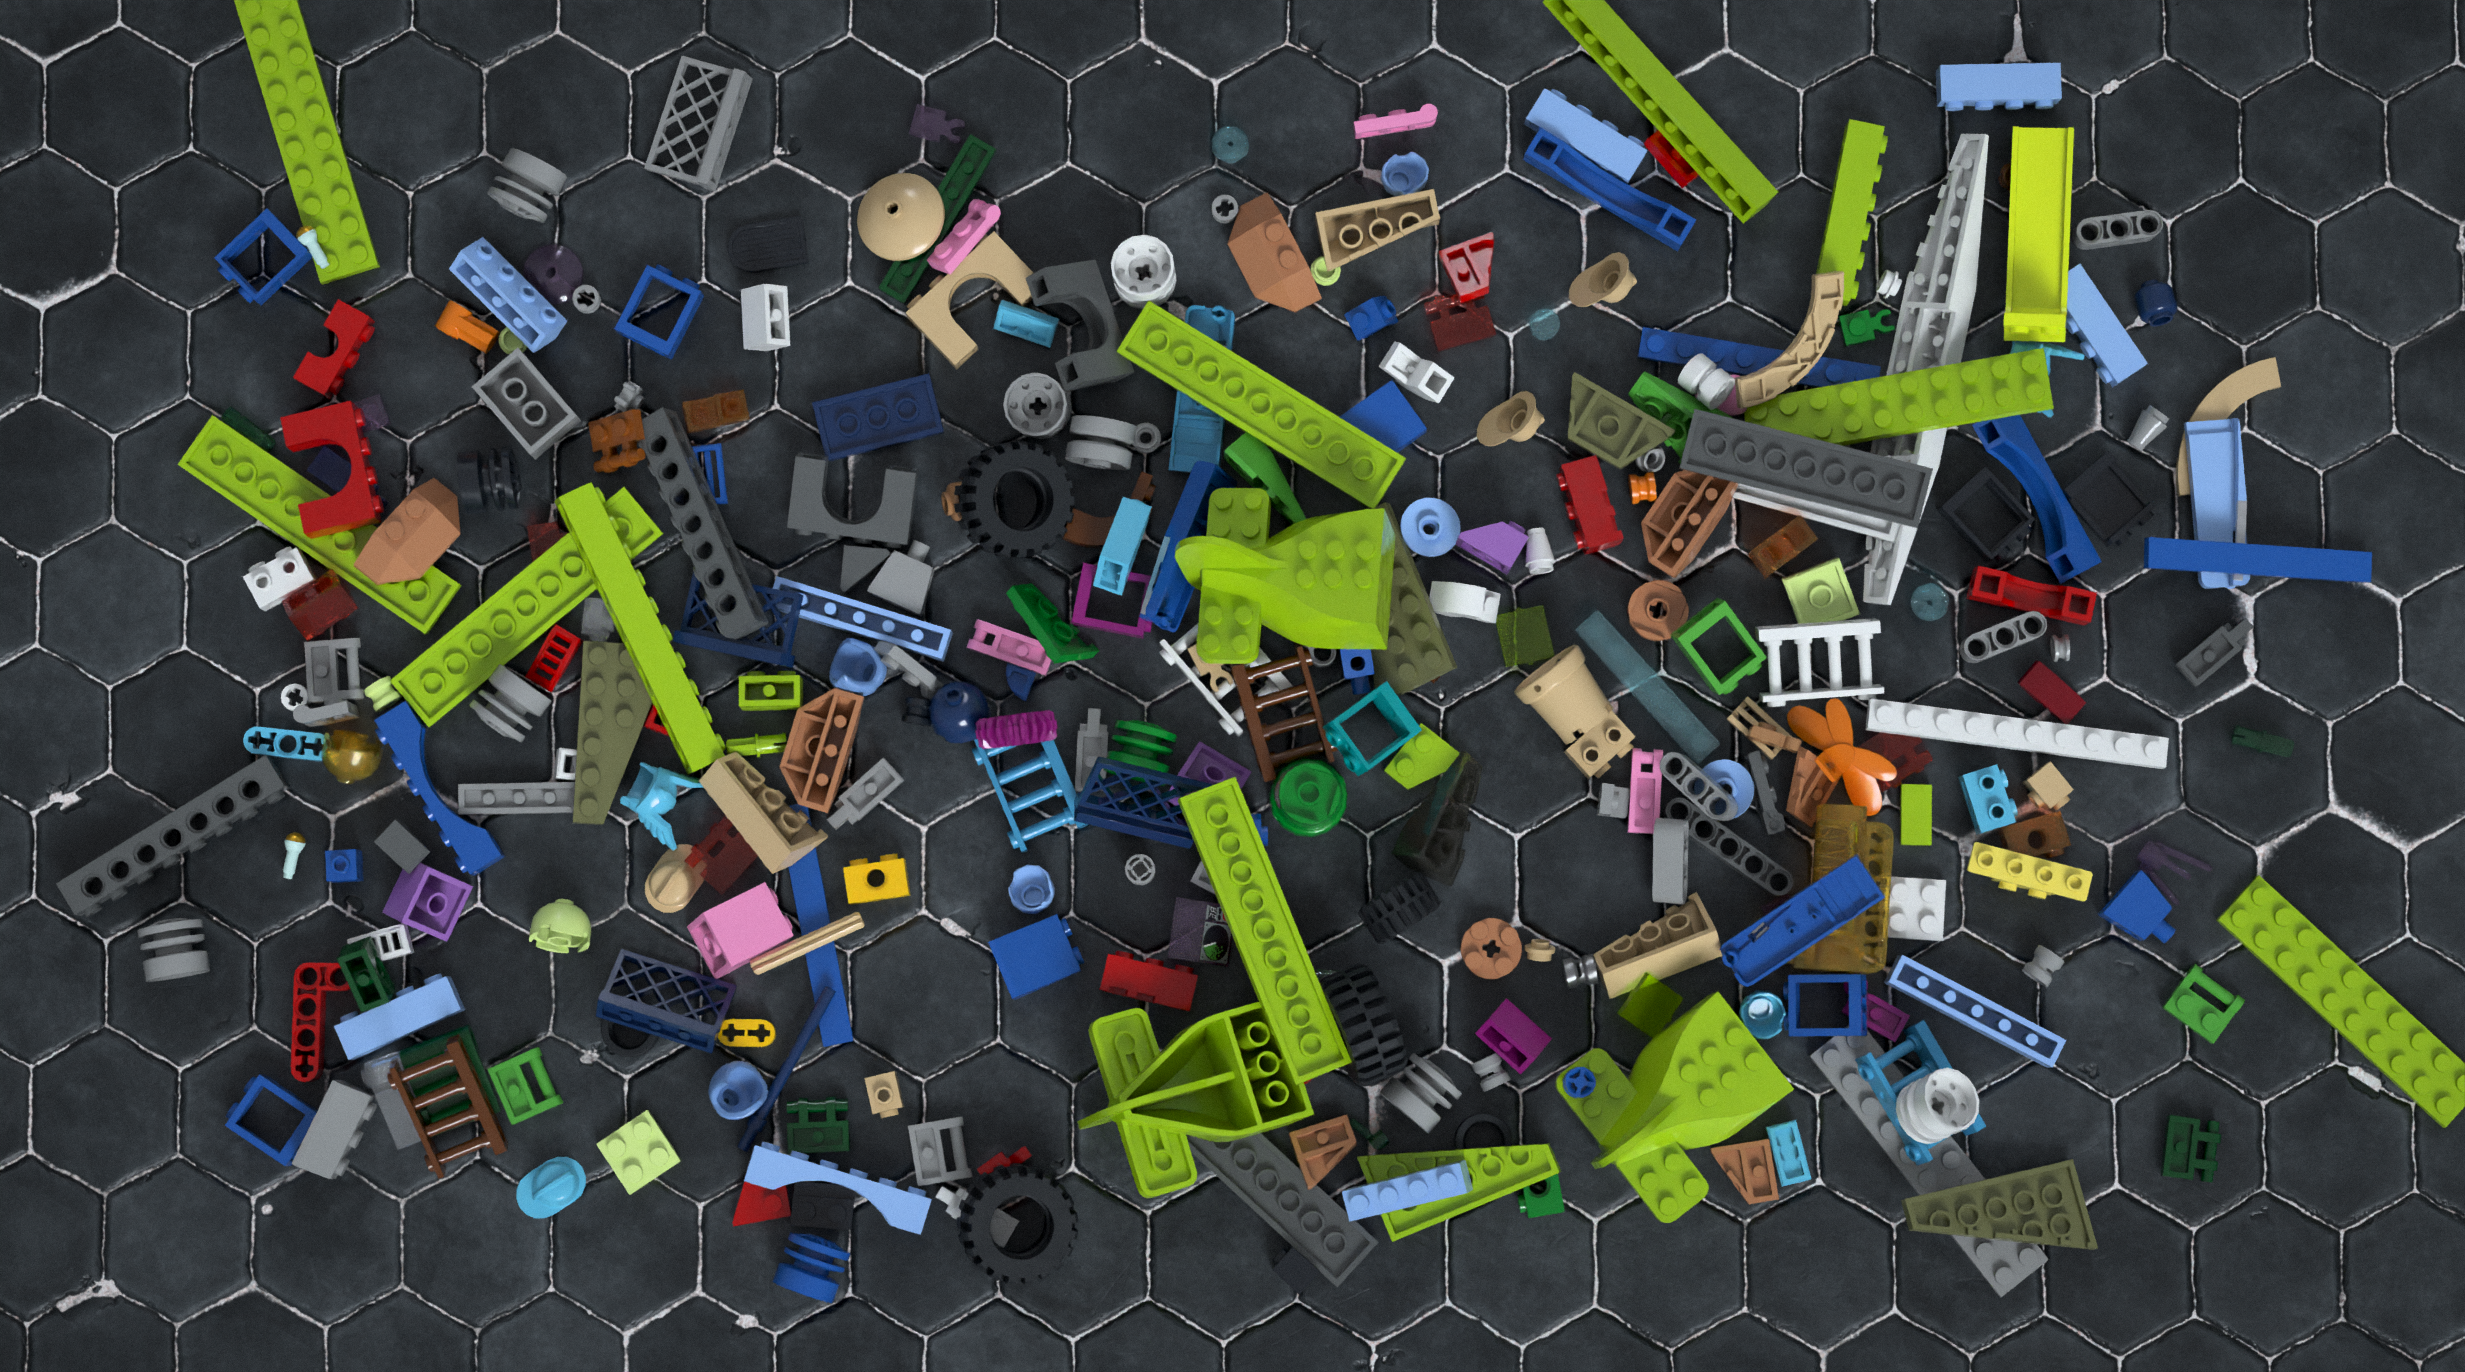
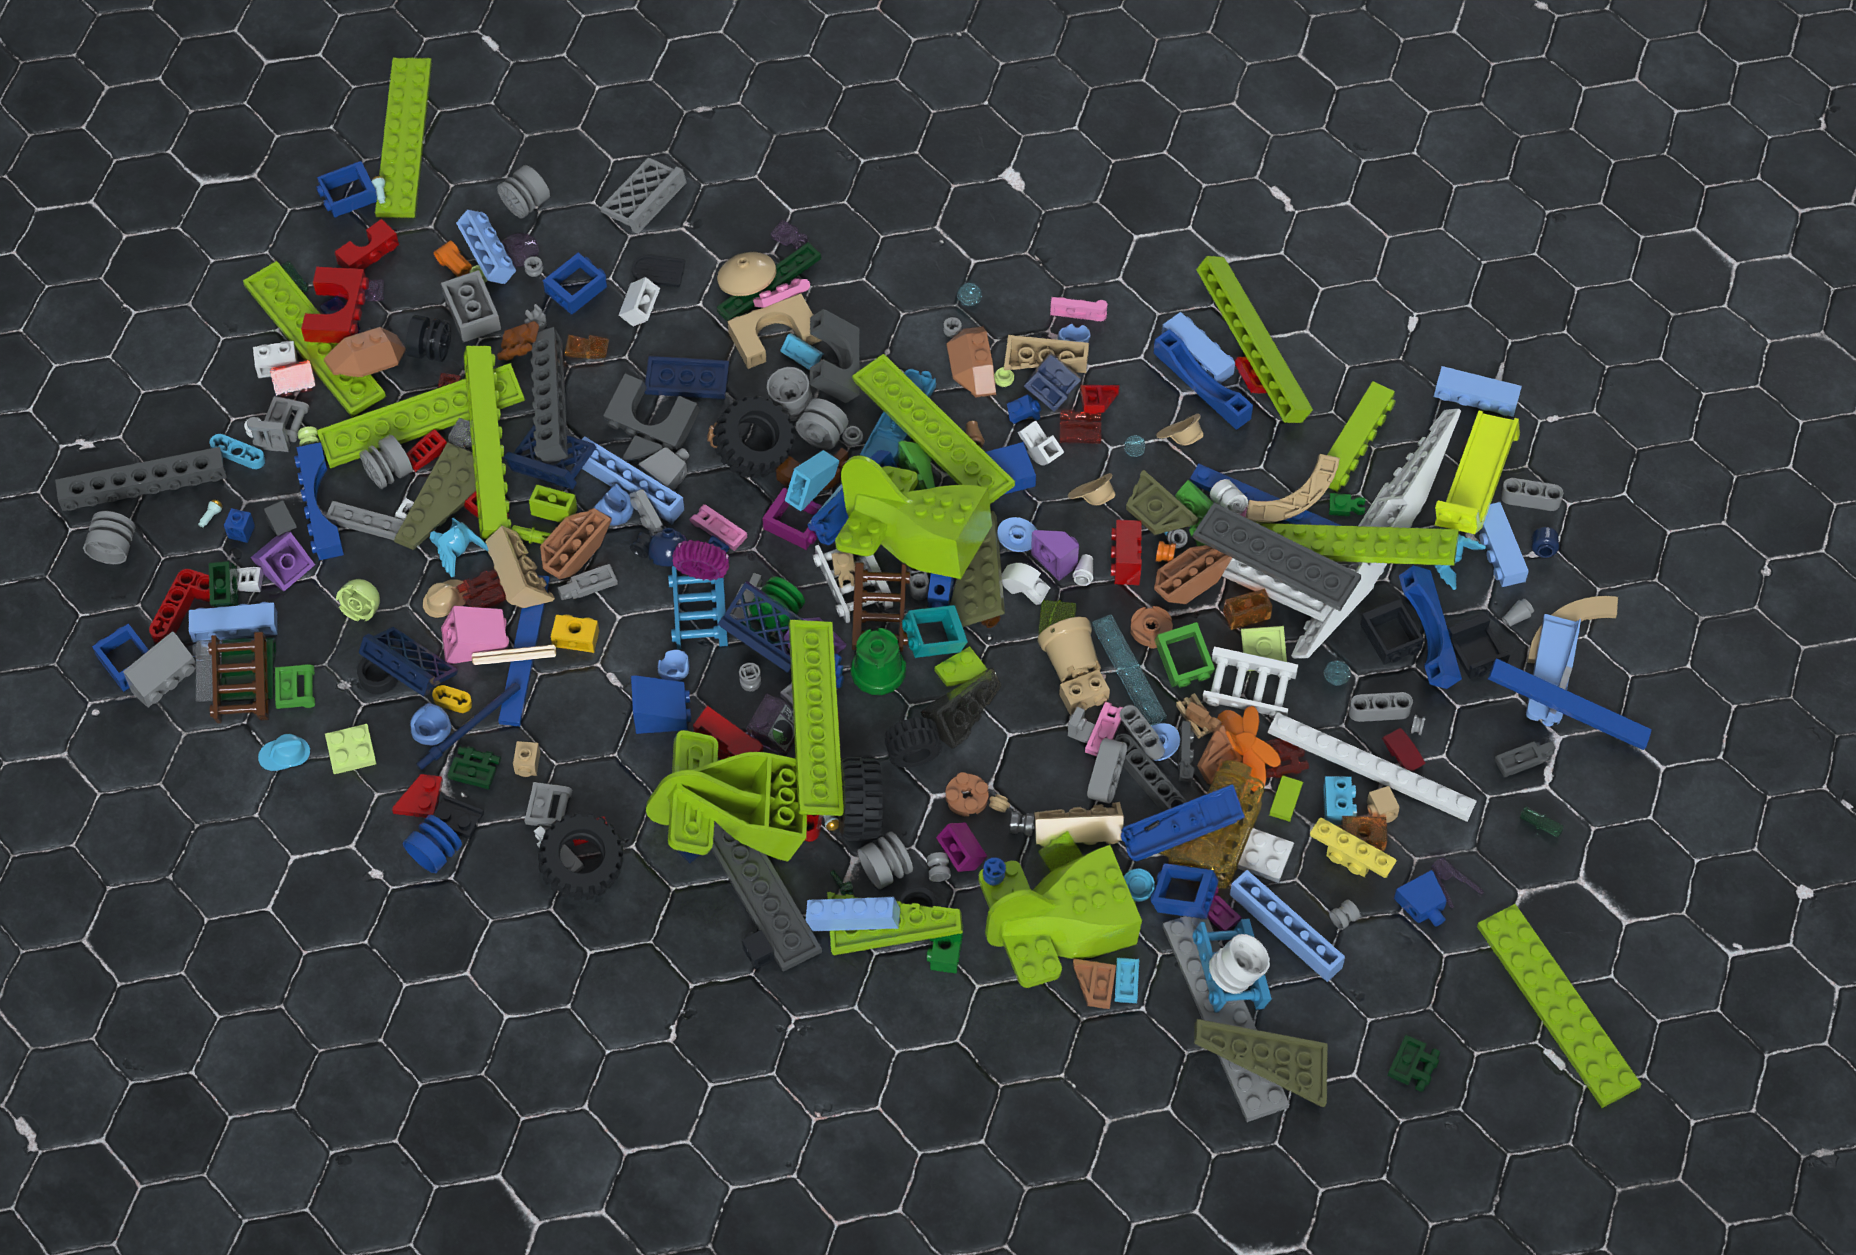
camera: 20 degrees right, 25 degrees down
(350, 756) = (271, 465): clear yellow cylinder -> none
(723, 499) = (571, 394): blue tile -> none
(899, 1208) = (436, 778): light blue arch -> none
(1054, 635) = (745, 517): green wing -> none
(1136, 257) = (887, 336): white wheel -> none
(1315, 383) = (974, 433): none -> medium nougat cone
(1322, 1147) = (806, 878): nougat wing -> none
(1400, 265) = (1052, 381): none -> dark blue slope
(1889, 284) = (1369, 484): white plate -> none
(2011, 592) = (1426, 696): red arch -> none
(2196, 1011) = (1446, 979): bright green plate -> none

